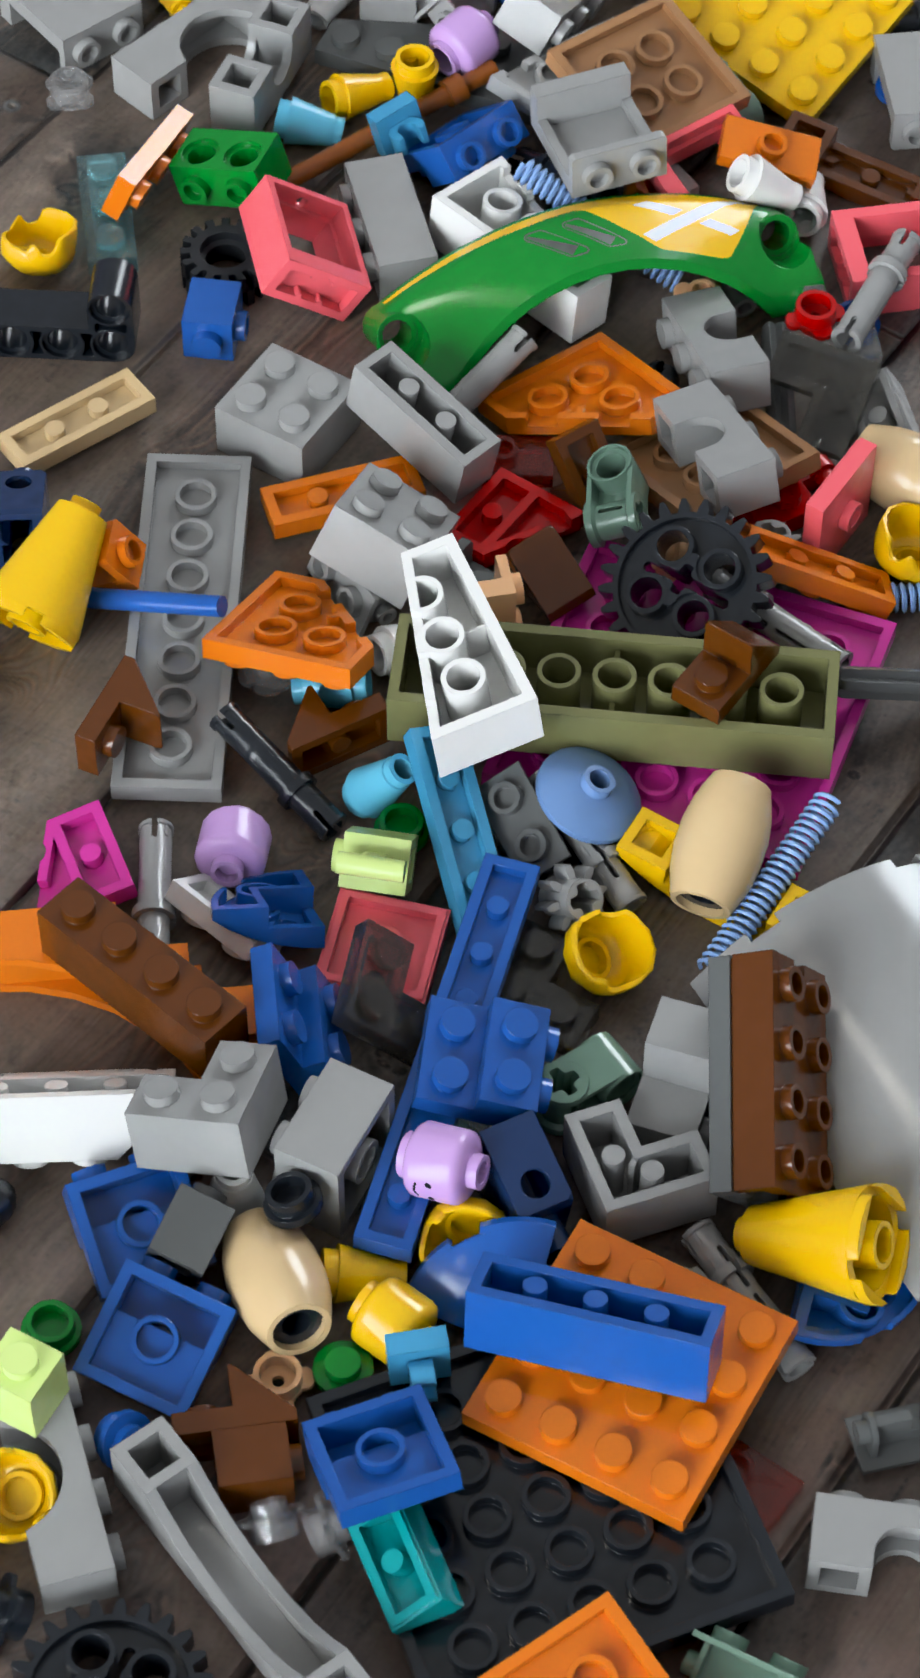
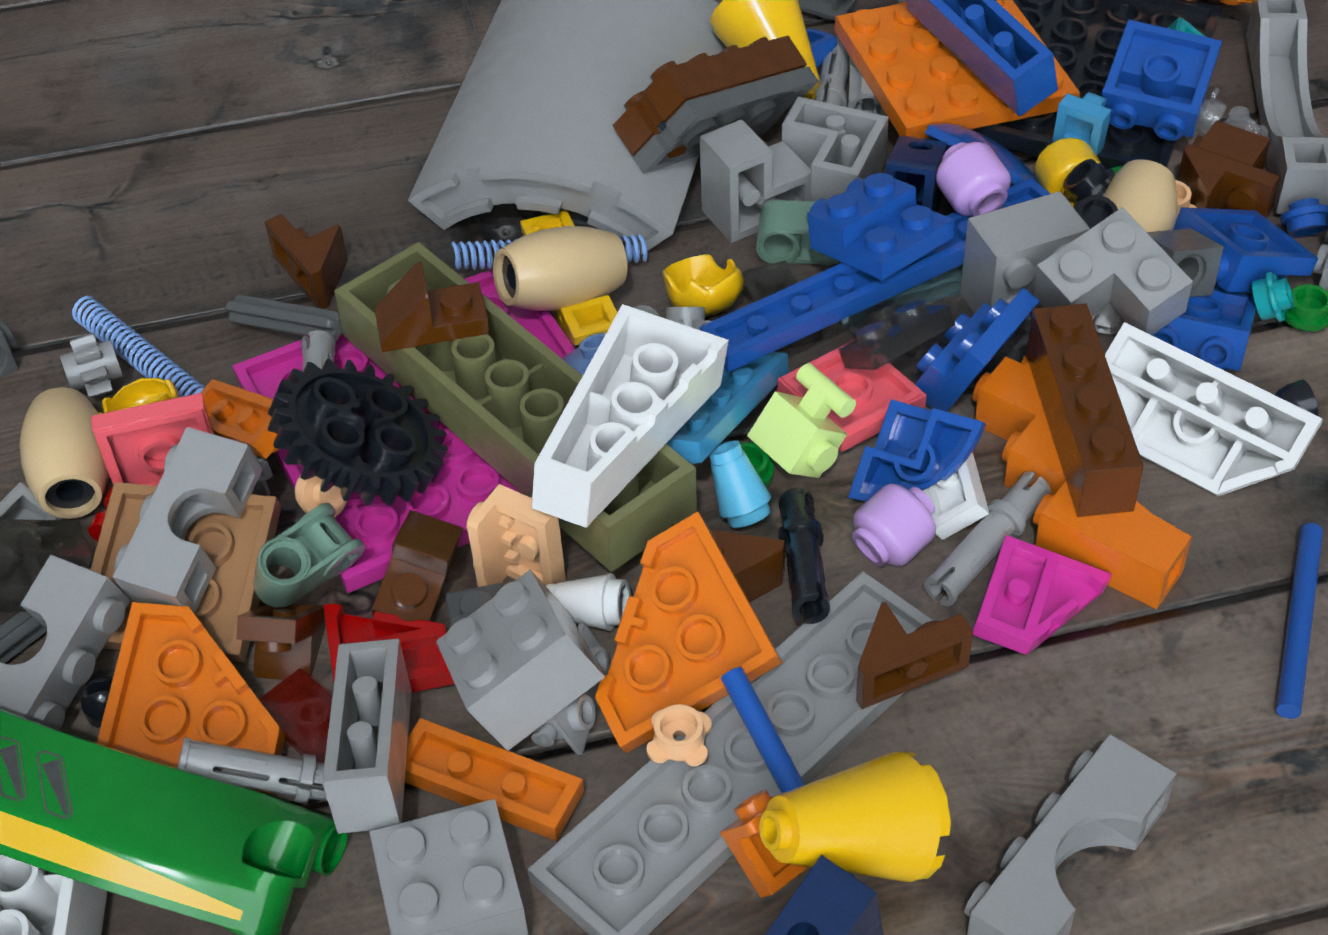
camera: 135 degrees left, 5 degrees down
(84, 1285) = (1272, 297): none -> teal plate
(230, 574) = (677, 721): none -> light nougat plate
(344, 1263) = (1087, 180): none -> black plate

